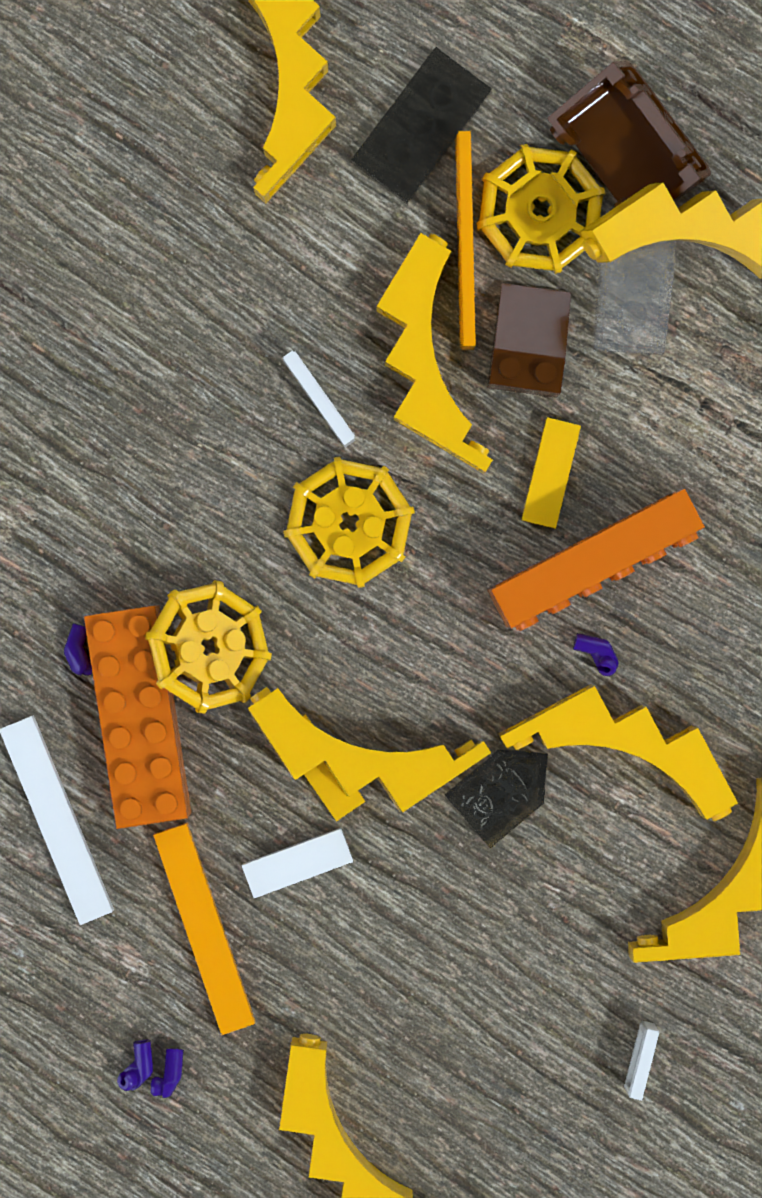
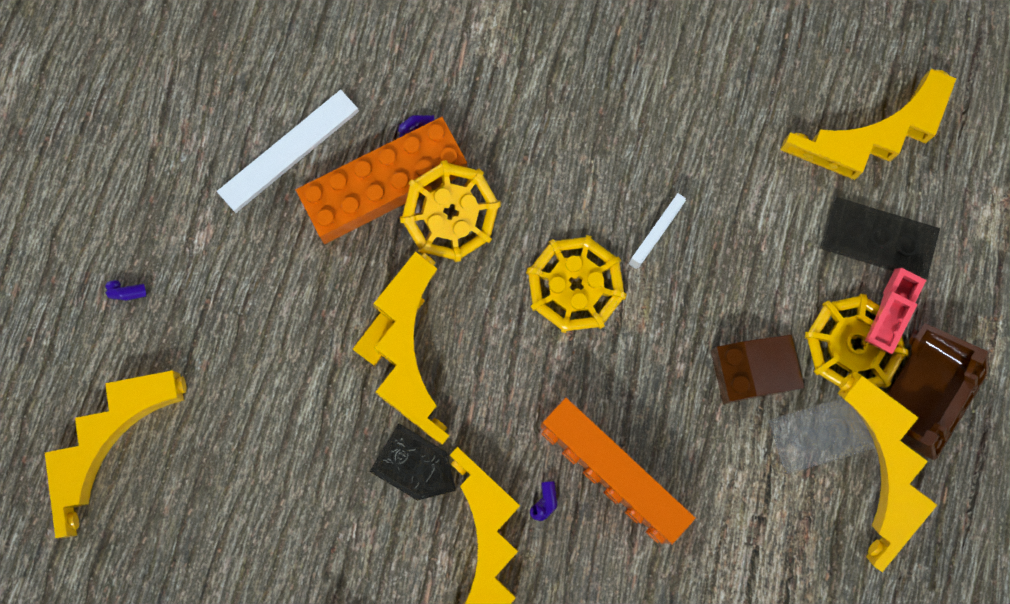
camera: 65 degrees right, 10 degrees down
(139, 1069) = (122, 269): dark purple arm -> none
(204, 928) = (240, 281): light orange tile -> none
(297, 862) = (312, 332): white tile -> none
(428, 405) = (750, 272): yellow arch -> none
(465, 240) = (811, 296): light orange tile -> none
(519, 147) = (895, 310): none -> coral slope
(550, 473) = (666, 419): yellow tile -> none

